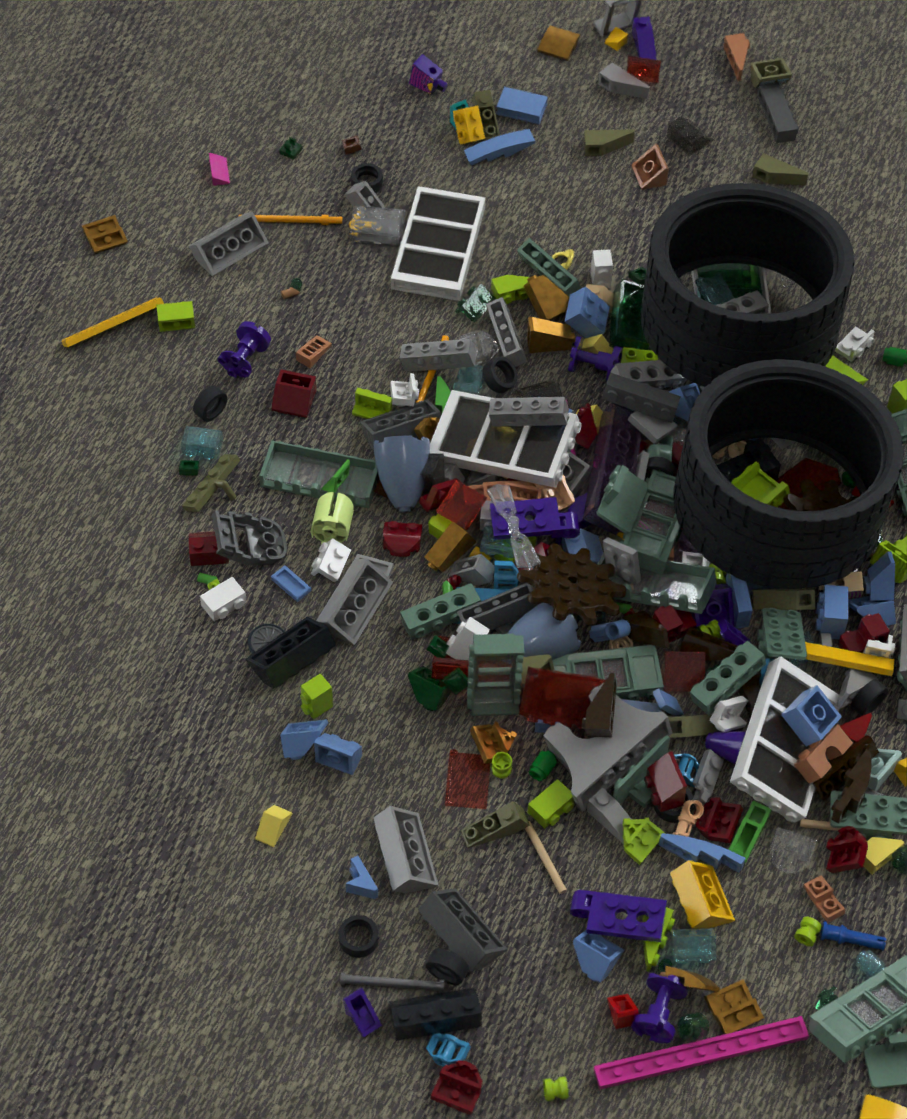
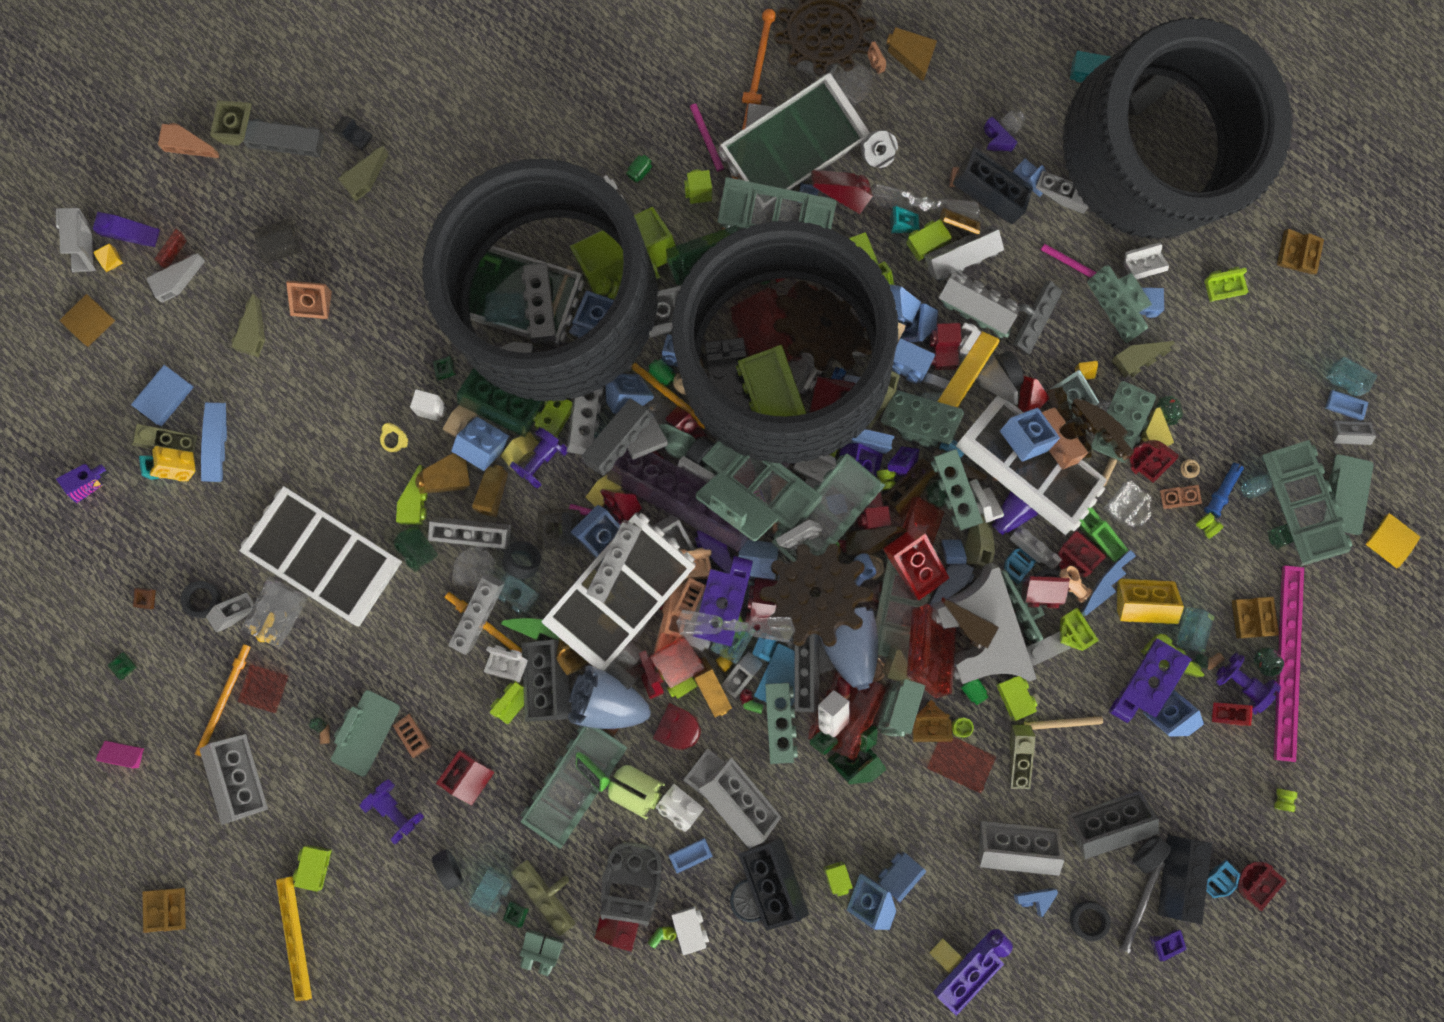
camera: 70 degrees left, 25 degrees up
(166, 494) = (531, 951): none -> sand green hips
(286, 840) = (981, 962): none -> dark purple hinge
(303, 315) = (364, 732): none -> sand green bracket
(311, 242) = (263, 688): none -> clear red tile
(547, 266) = (403, 457): sand green brick -> none
(641, 666) = (916, 562): none -> red slope
(693, 979) = (1232, 644): pearl gold slope -> none
(809, 156) = (352, 132): none -> black slope
(858, 893) = (1195, 468): none -> tan plate

